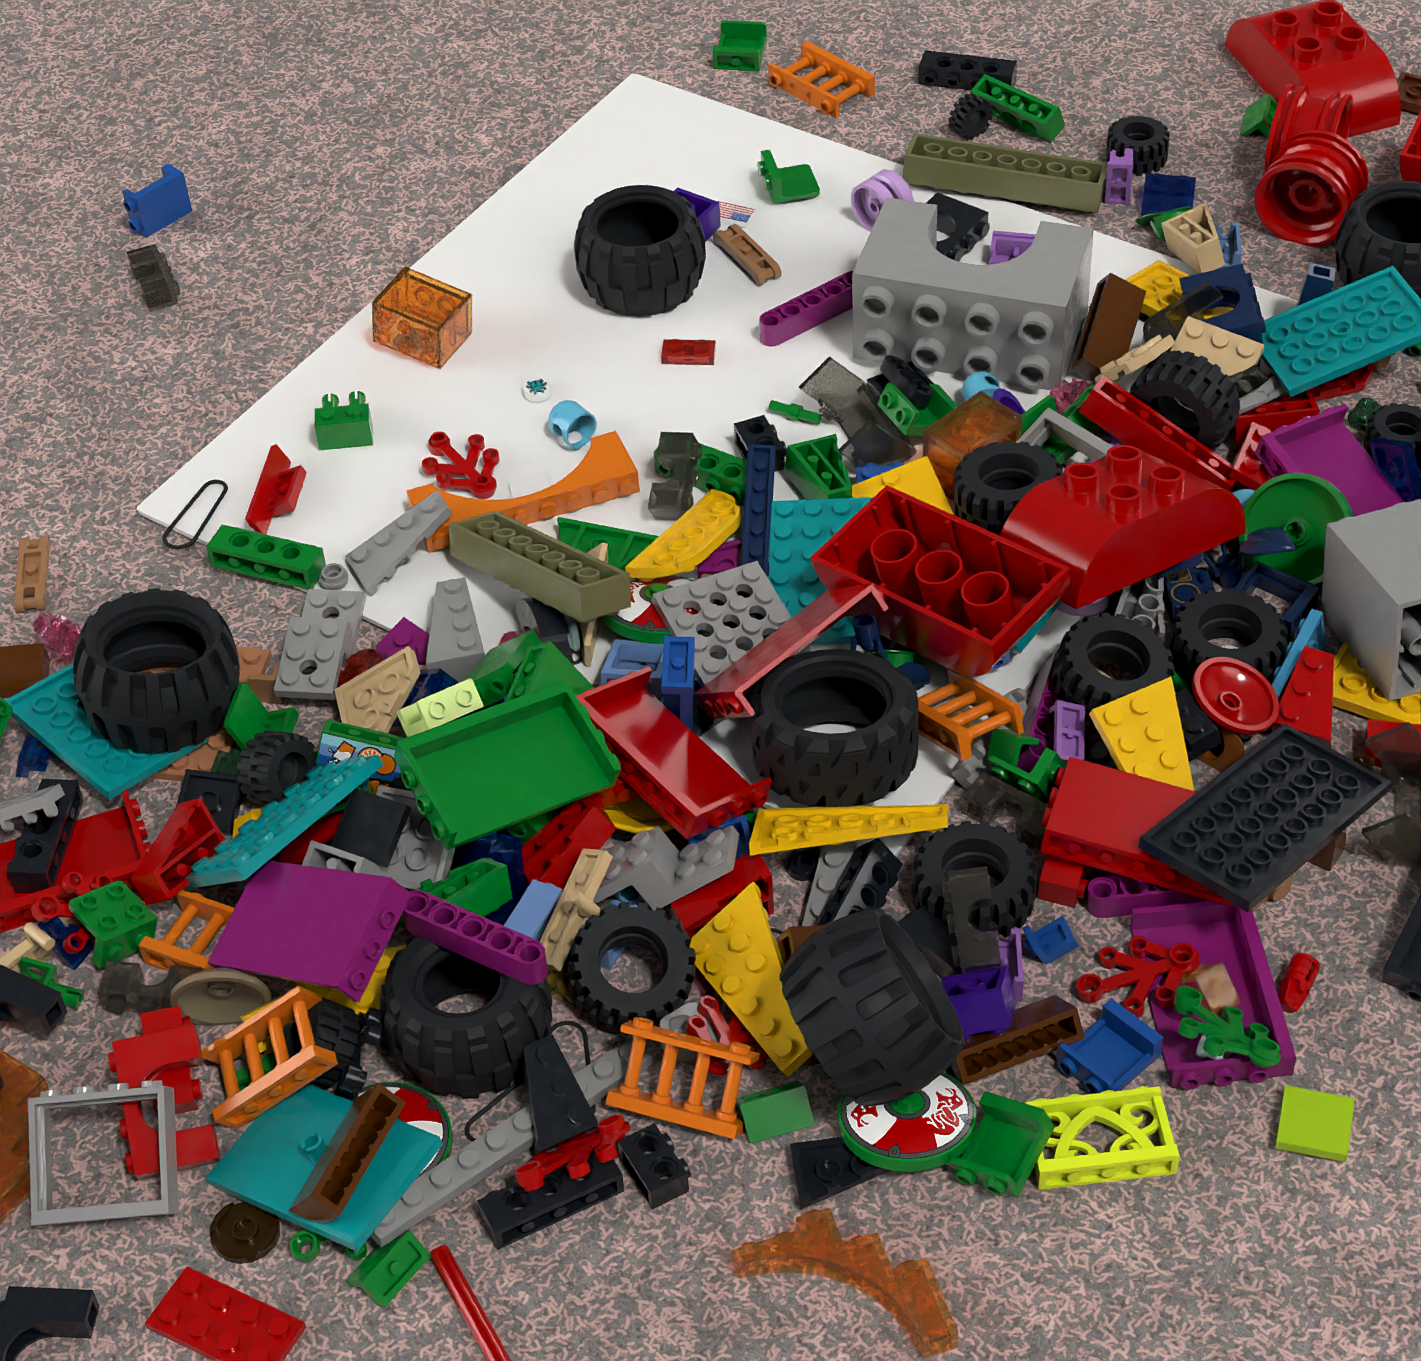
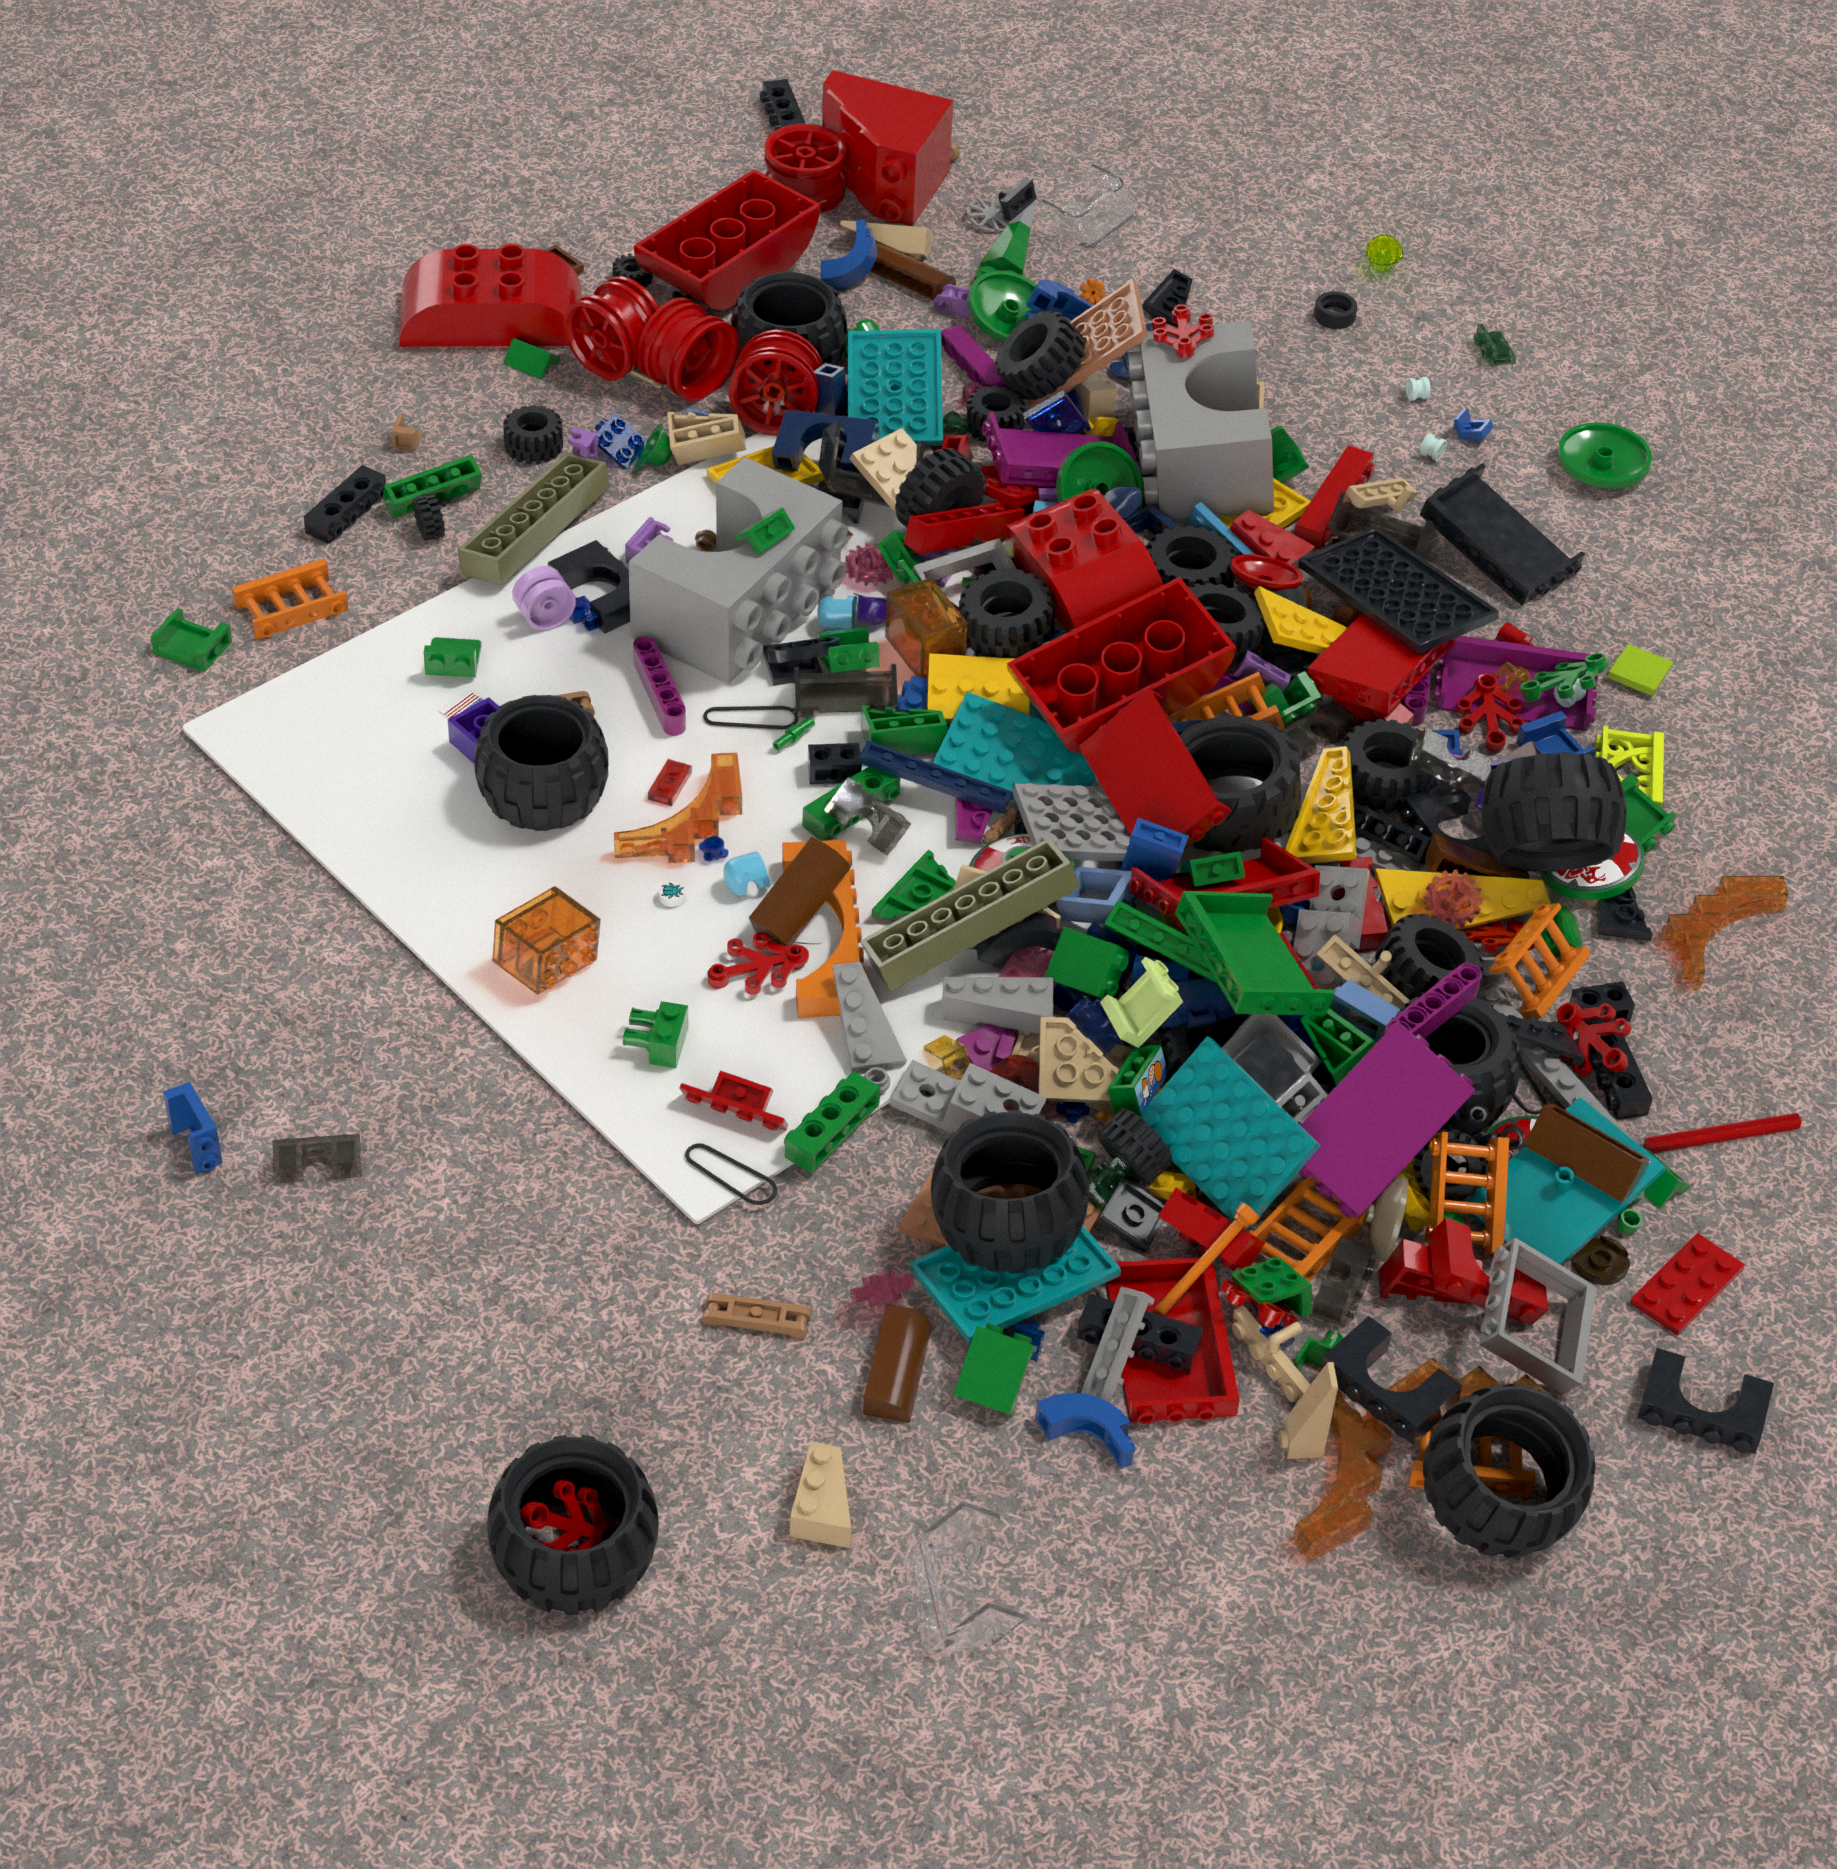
camera: 80 degrees left, 0 degrees up
(162, 855) = (1243, 1218): none -> orange piece
(384, 617) = (948, 1051): none -> clear yellow bracket
(547, 455) = (799, 892): none -> reddish brown brick
(607, 399) = (713, 848): none -> clear blue plate
(642, 379) = (698, 820): none -> clear orange arch
(689, 538) = (952, 824): yellow plate -> none
(695, 736) = (1212, 869): none -> green panel
(733, 959) = (1463, 893): none -> gear
(796, 378) = (751, 708): none -> black piece
(973, 263) = (767, 530): none -> green panel
(1091, 77) = (405, 437): none -> medium nougat panel
(1136, 358) = (881, 501): tan plate -> none
(1287, 241) = (782, 349): none -> red wheel

